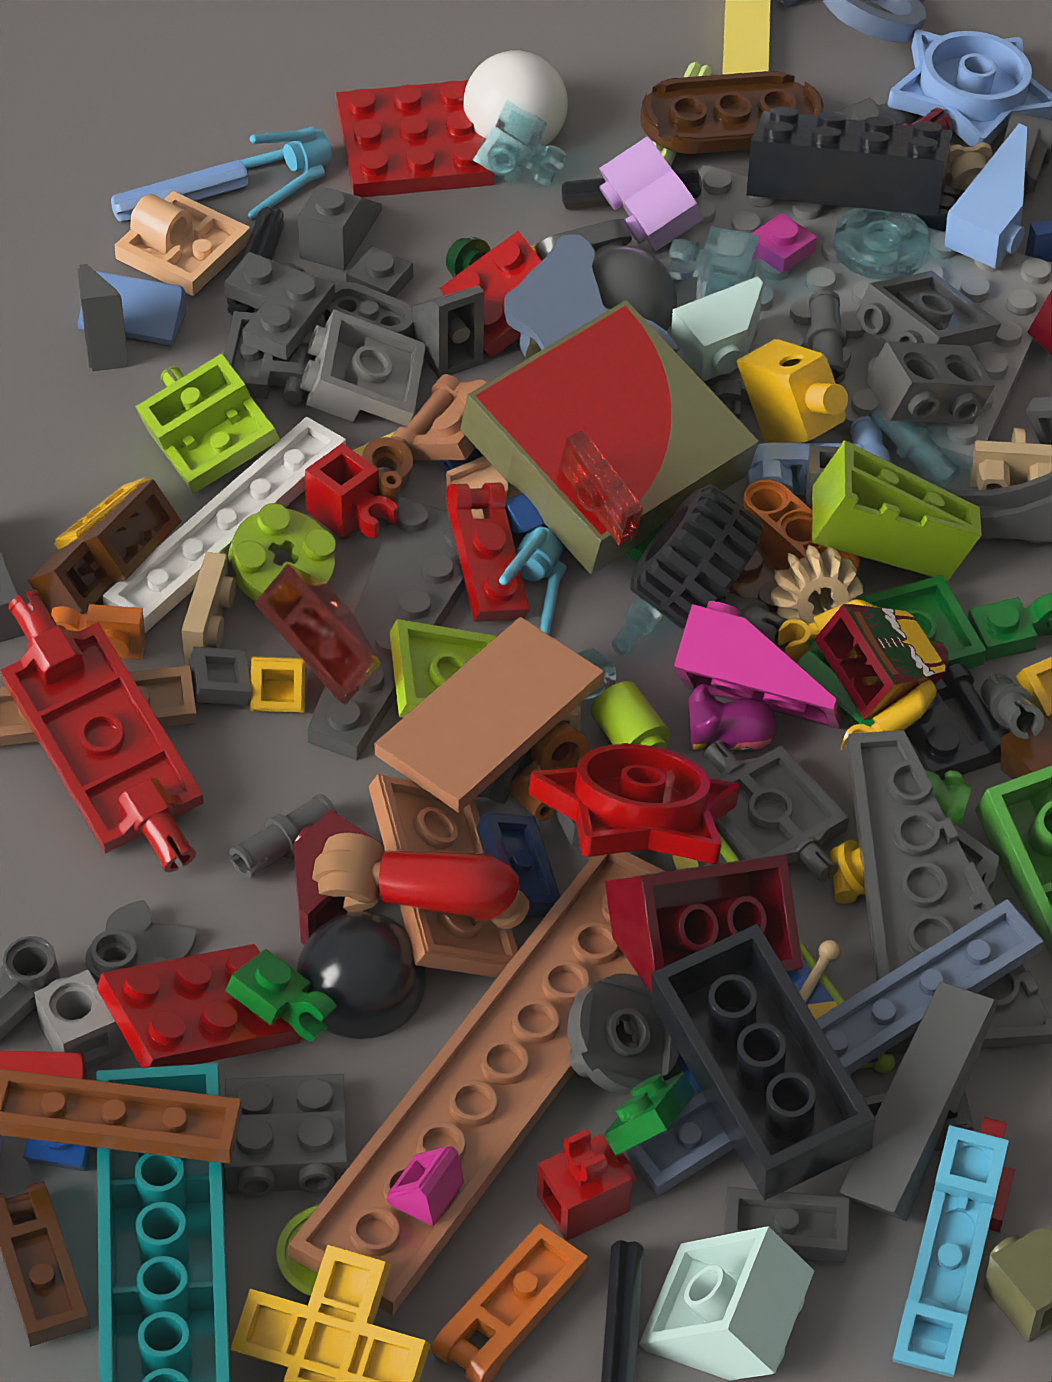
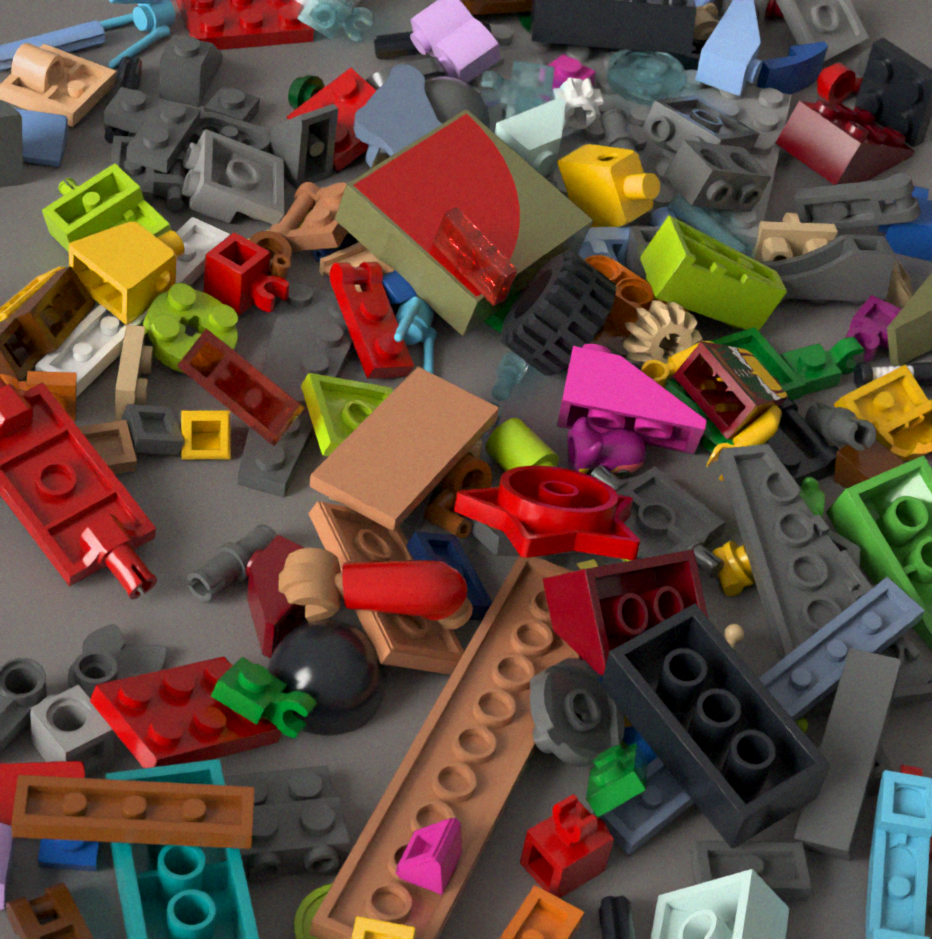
camera: 15 degrees left, 5 degrees down
(217, 481) = (126, 267): none -> yellow torso
(784, 280) = (581, 102): none -> white gear

